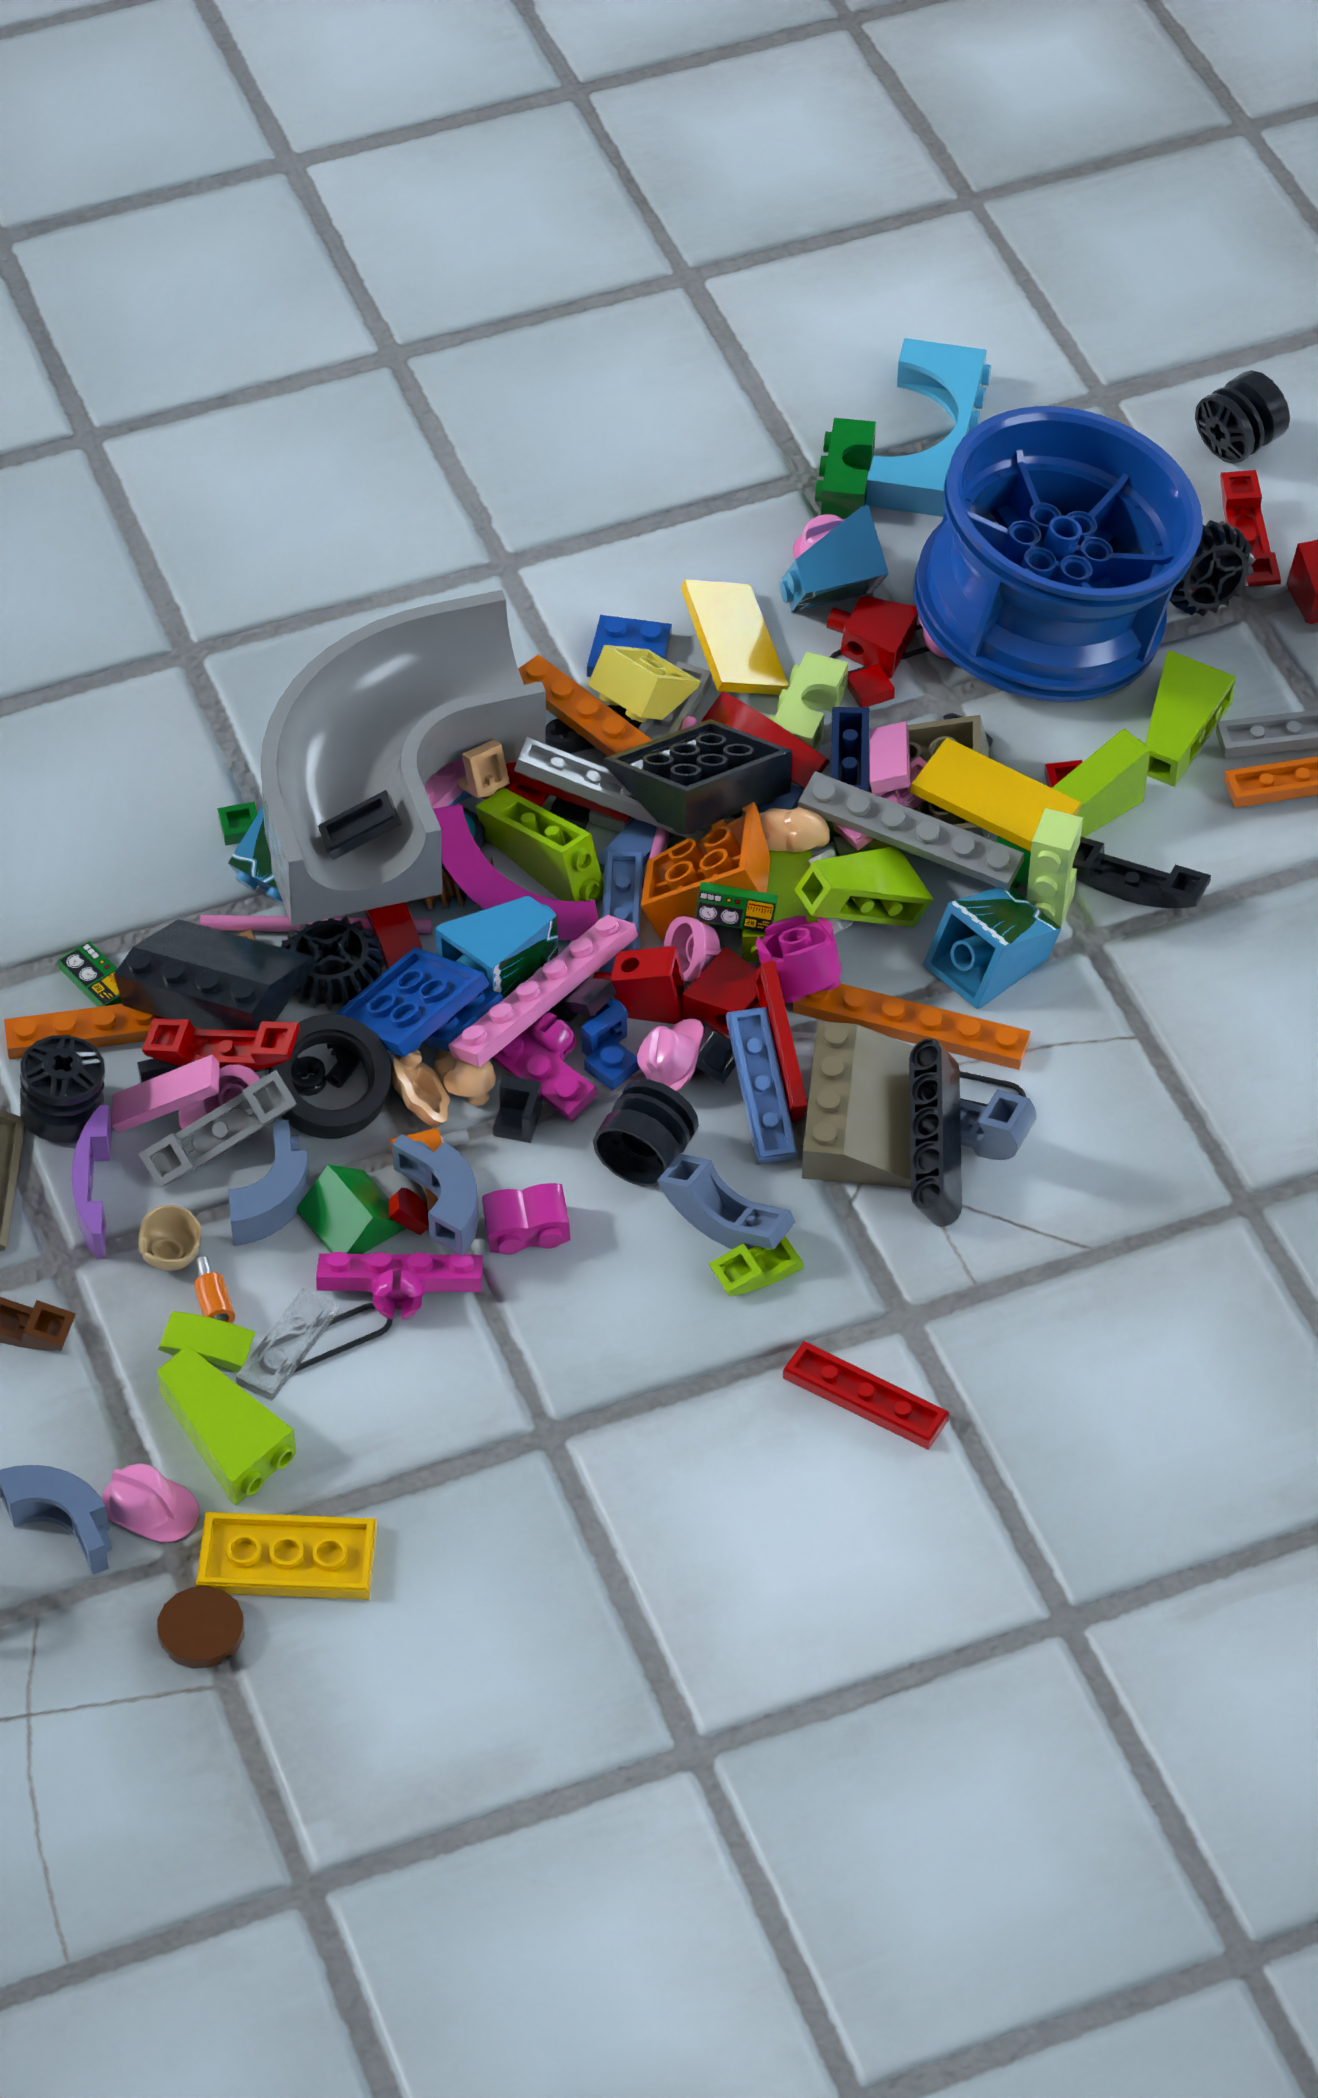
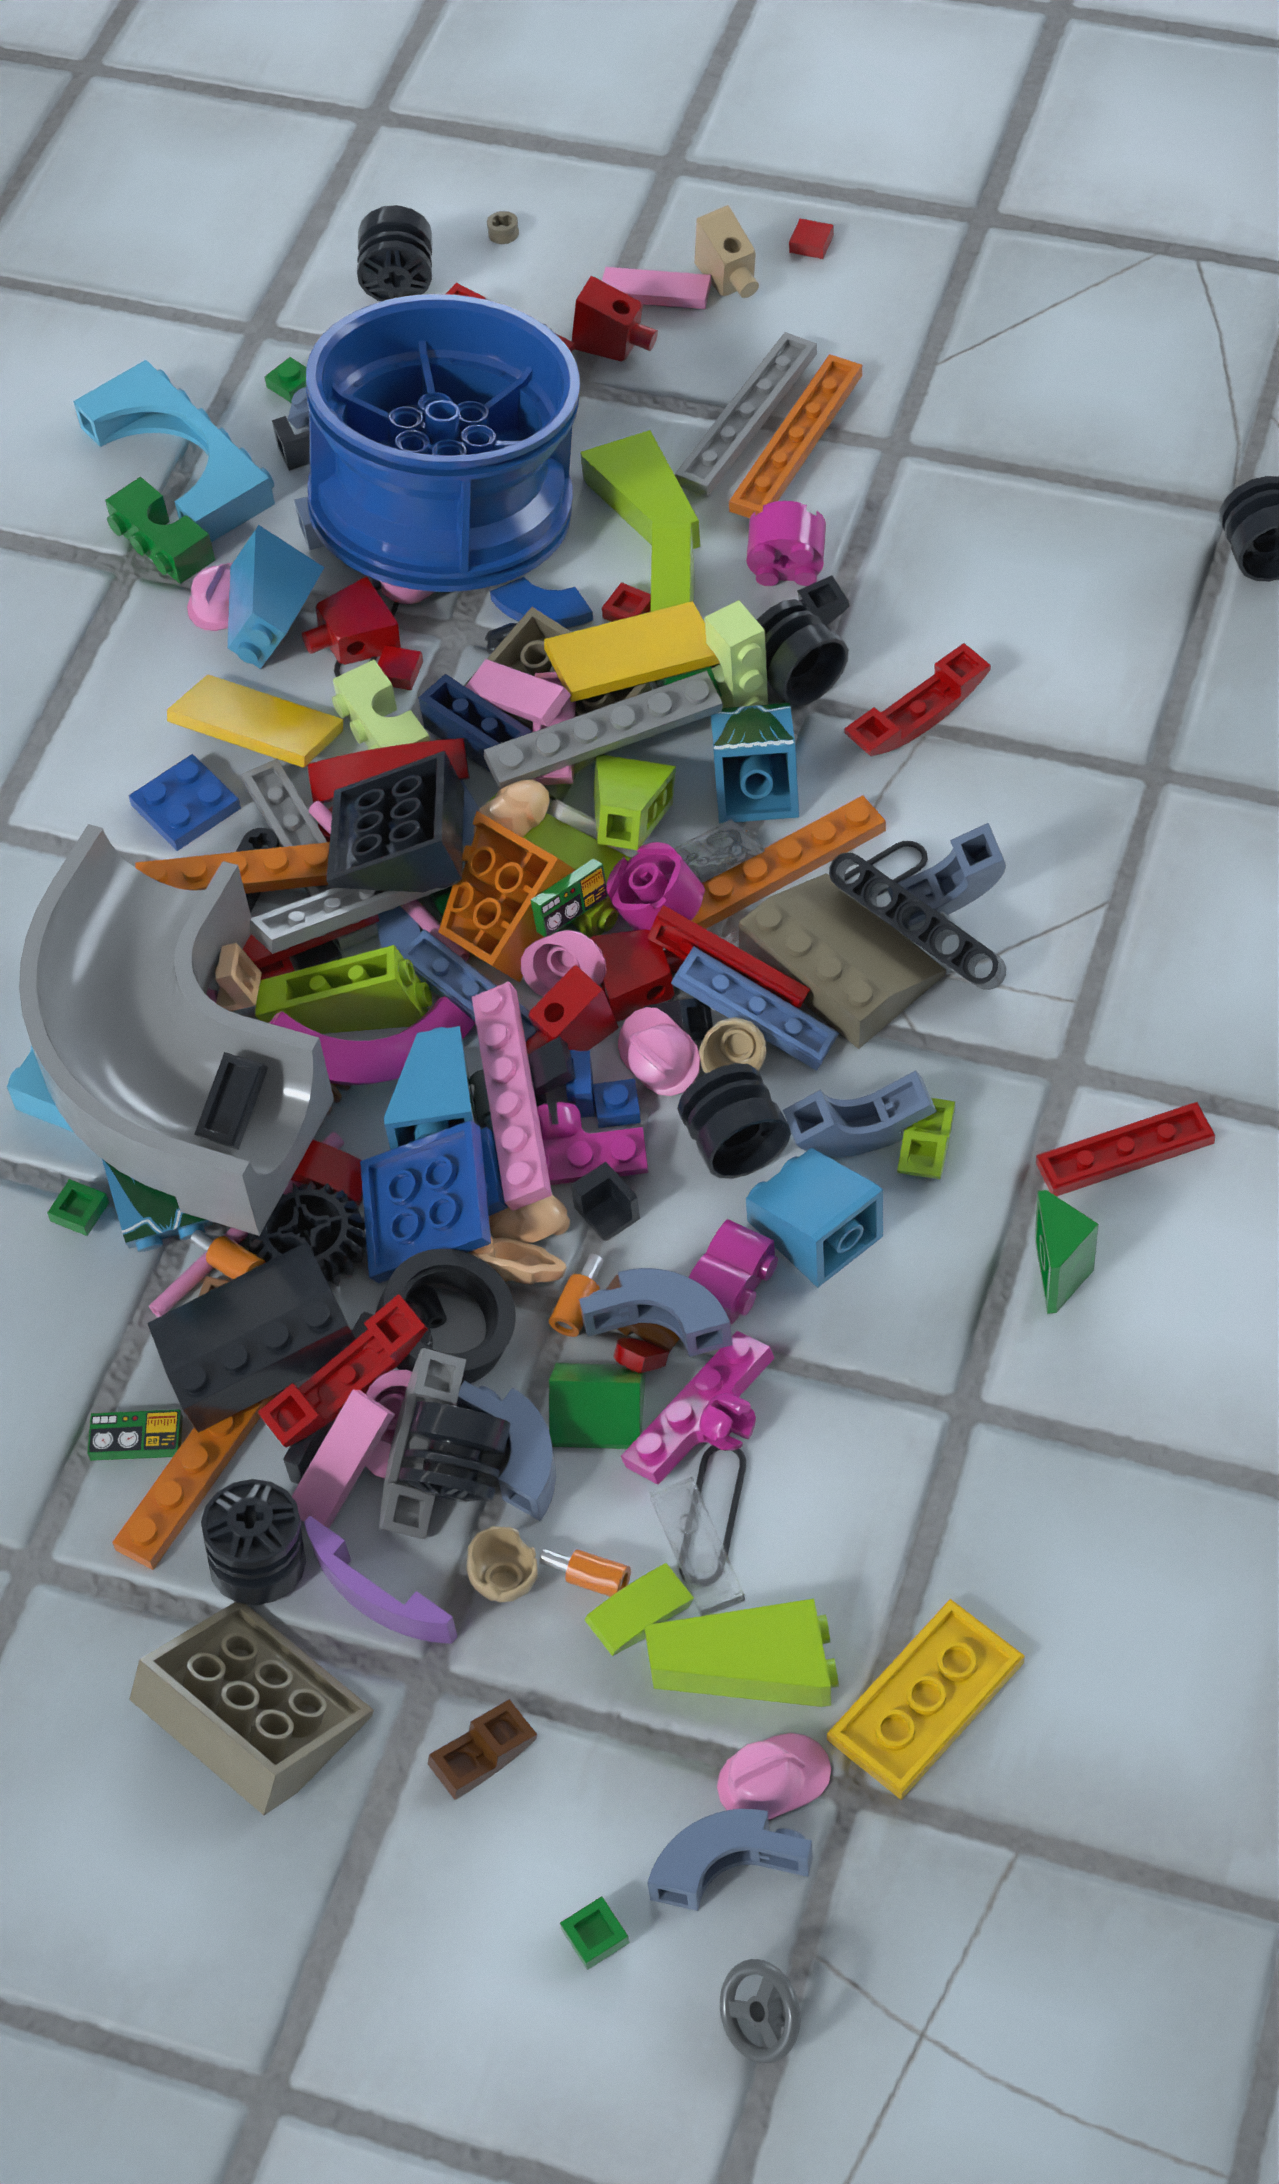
camera: 45 degrees left, 5 degrees up
(200, 1627) = (948, 1820): reddish brown tile -> none
(222, 1146) = (454, 1451): none -> black wheel
(273, 924) = (226, 1254): none -> orange piece
(617, 1238) = (817, 1214): none -> dark azure slope
(640, 682) = (248, 811): light yellow slope -> none
(712, 1400) = (1064, 1248): none -> green slope
(714, 1096) = (731, 1043): none -> tan hair
(889, 976) = (719, 850): none -> clear piece
(1013, 731) = (563, 606): none -> blue tile
(1110, 899) = (801, 653): none -> black wheel
(1150, 1016) = (923, 706): none -> red slope
(1213, 829) = (786, 544): none -> dark pink brick

